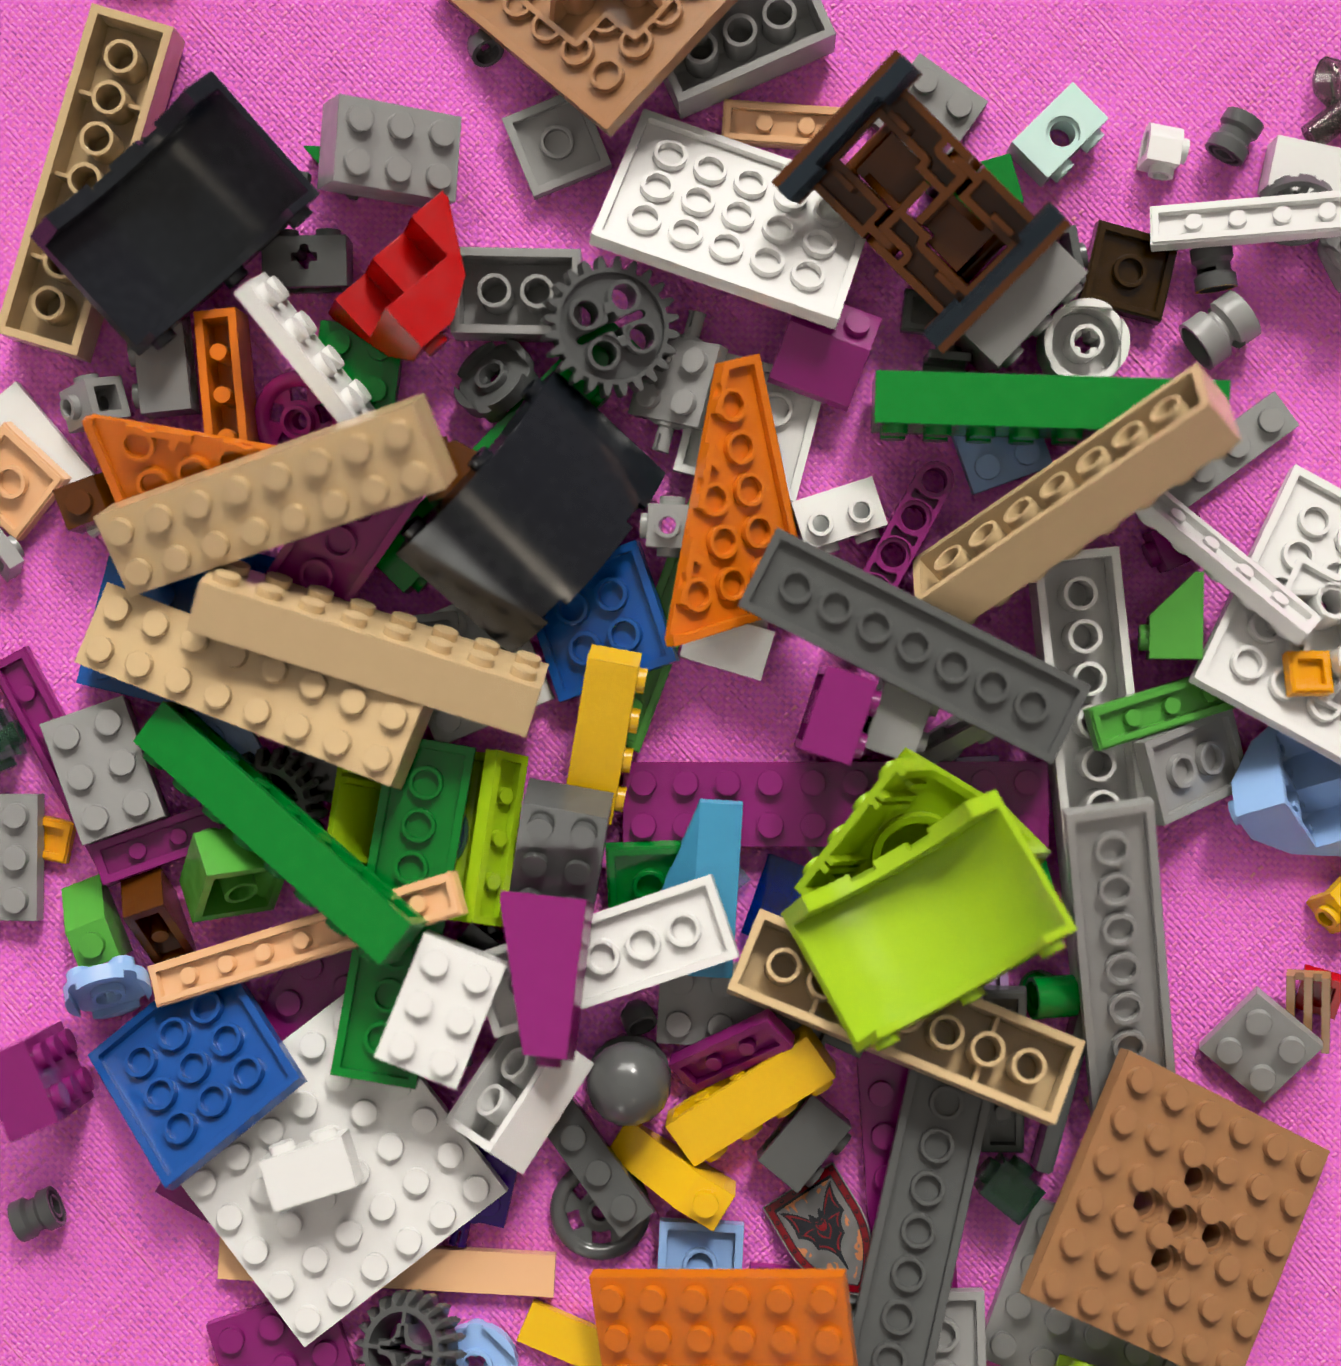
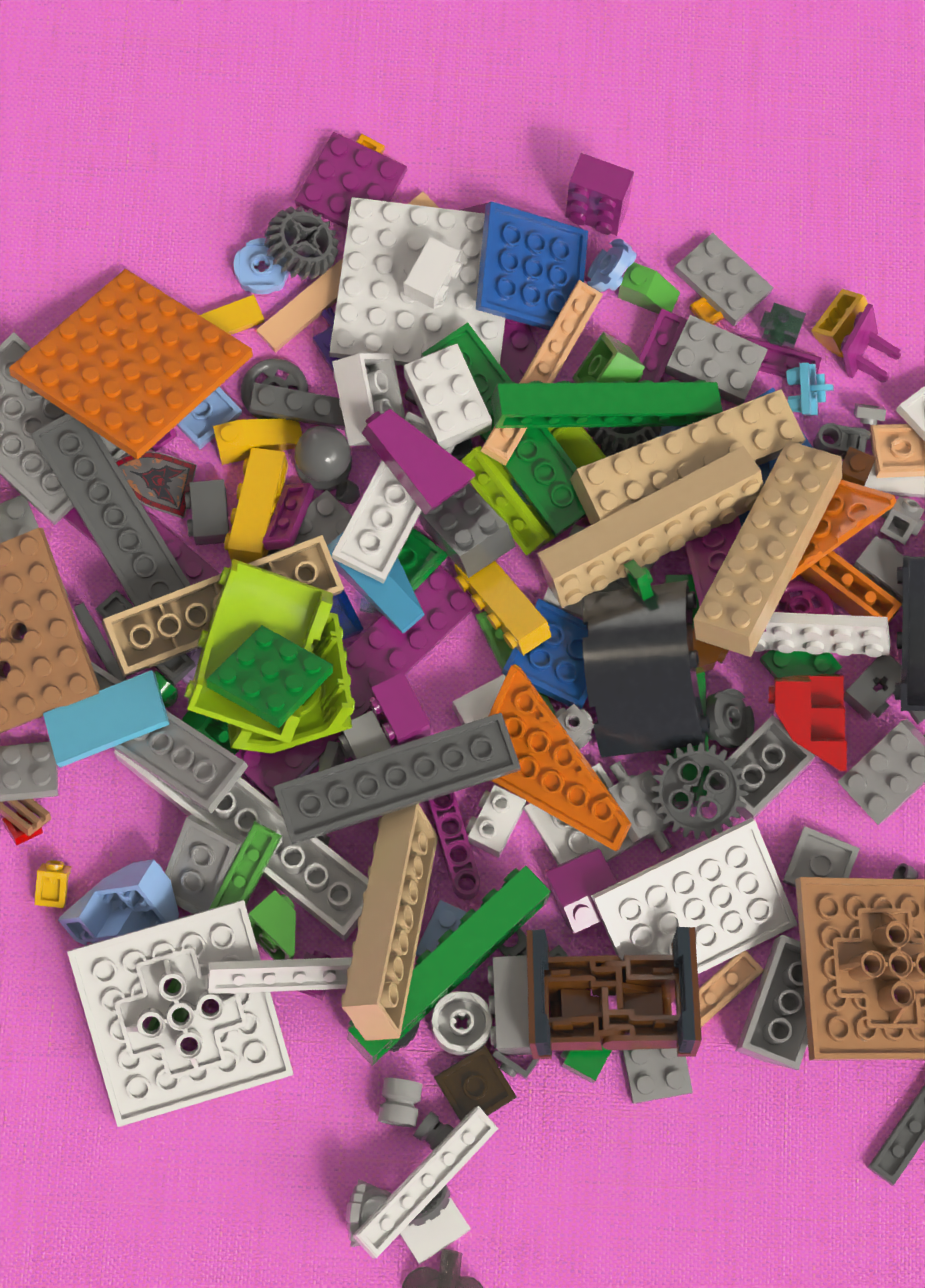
camera: 135 degrees right, 15 degrees down
(29, 657) = (812, 389): none -> medium azure hips
(36, 1214) = (536, 140): dark grey wheel -> none
(62, 549) = (843, 439): none -> dark grey piece
(156, 915) = (622, 320): reddish brown slope -> none
(444, 604) = (639, 579): none -> green plate
(947, 882) = (269, 676): none -> green plate
(1009, 1185) = (88, 584): clear green brick -> none
(1070, 113) = (588, 1102): light aqua brick -> none
(1145, 1013) = (106, 719): none -> medium azure tile
(1162, 151) = (520, 1166): white plate -> none
(1234, 136) = (491, 1211): dark grey wheel -> none
(1258, 430) = (332, 1051): light grey plate -> none
(1307, 673) = (188, 959): light orange tile -> none

